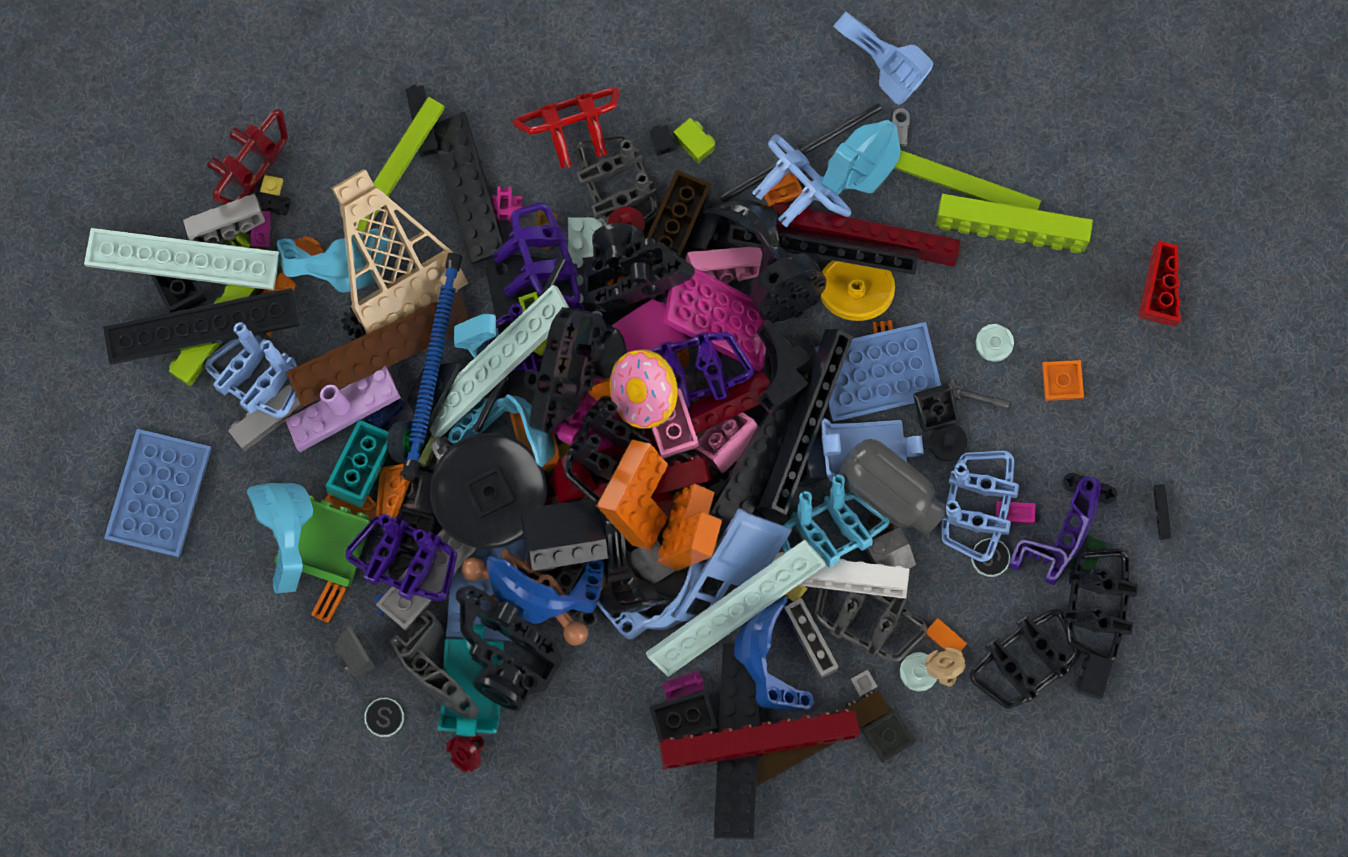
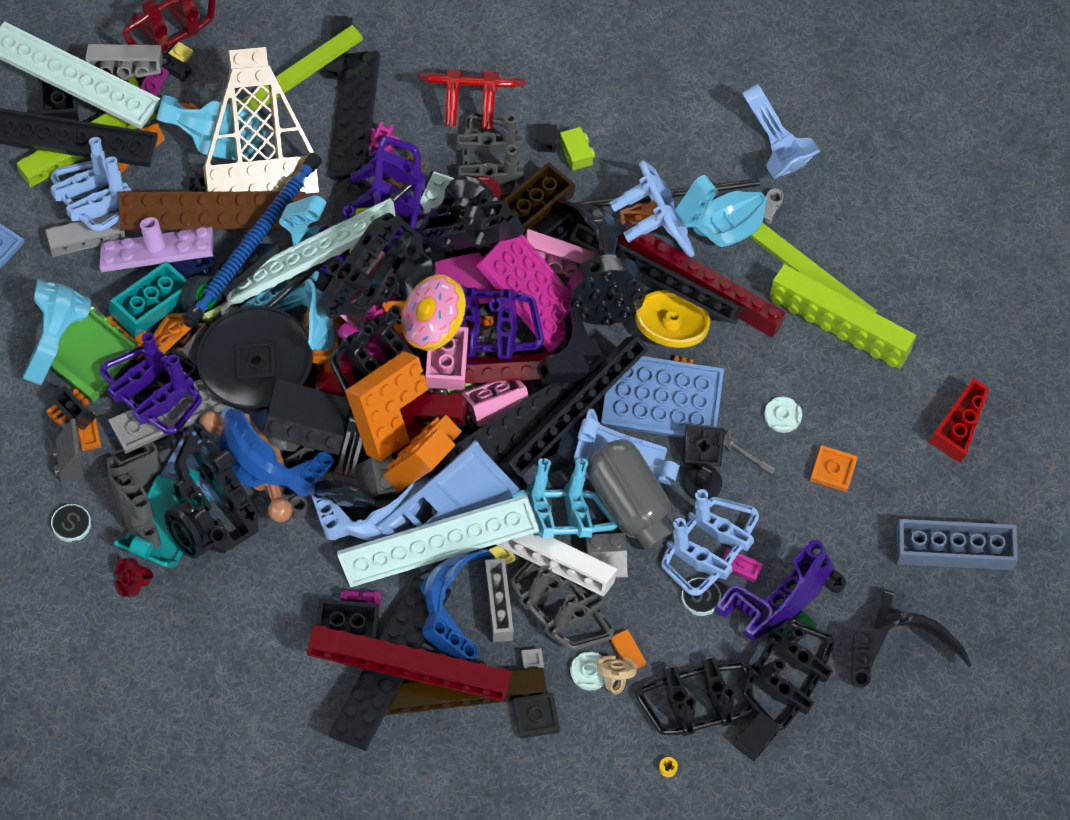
camera: 15 degrees right, 15 degrees down
(338, 605) = (73, 407): none -> black brick
(358, 618) = (90, 436): none -> orange tile
(1030, 733) = (670, 773): none -> yellow bush
(1168, 539) = (876, 637): none -> black piece
(1203, 414) = (956, 544): none -> sand blue brick

